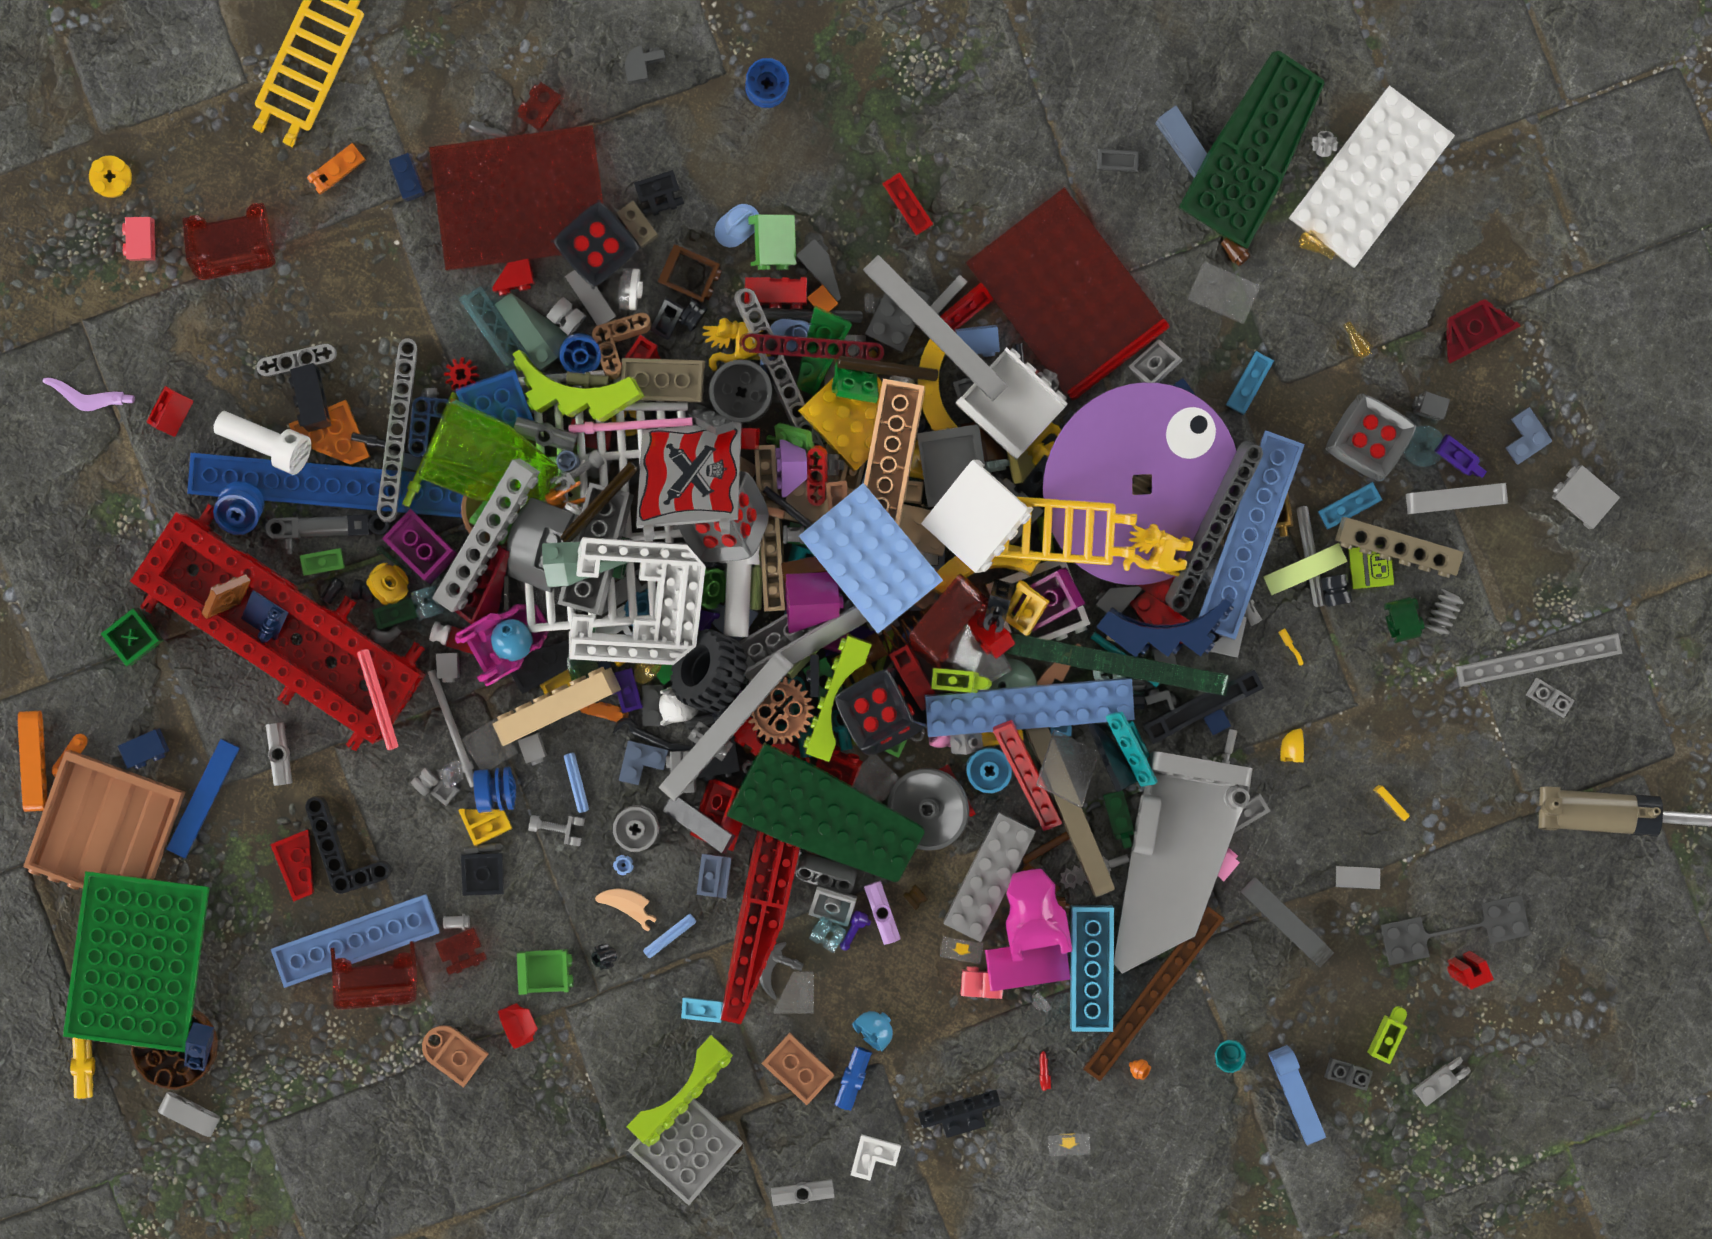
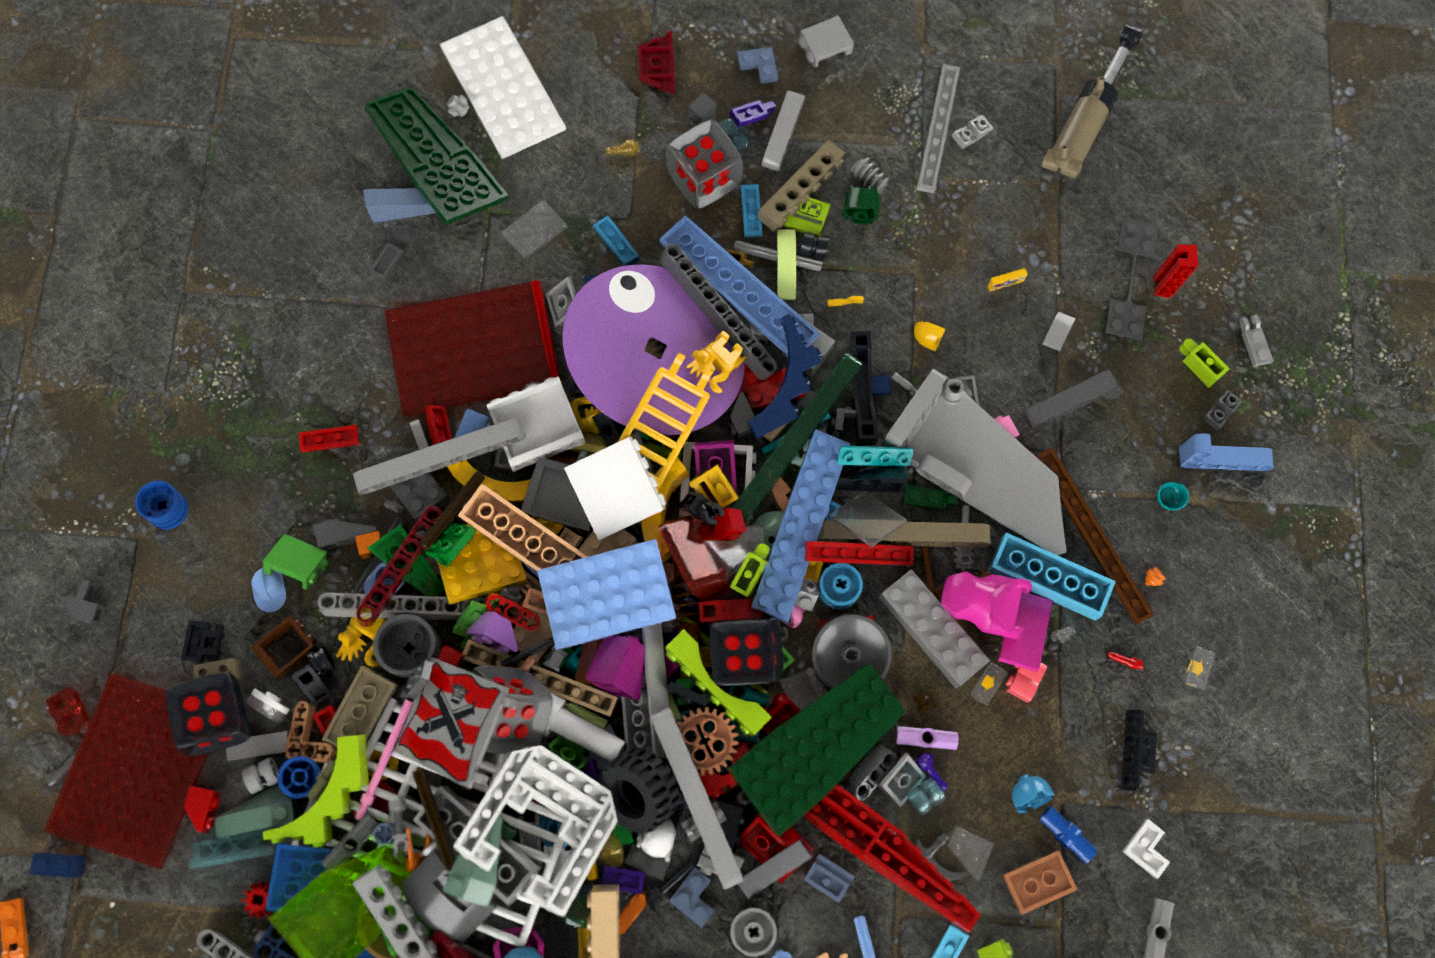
camera: 65 degrees left, 15 degrees down
(778, 291) = (344, 573): red wedge -> none
(1237, 253) = (506, 205): reddish brown cone -> none
(1311, 242) = (529, 148): clear yellow cone -> none

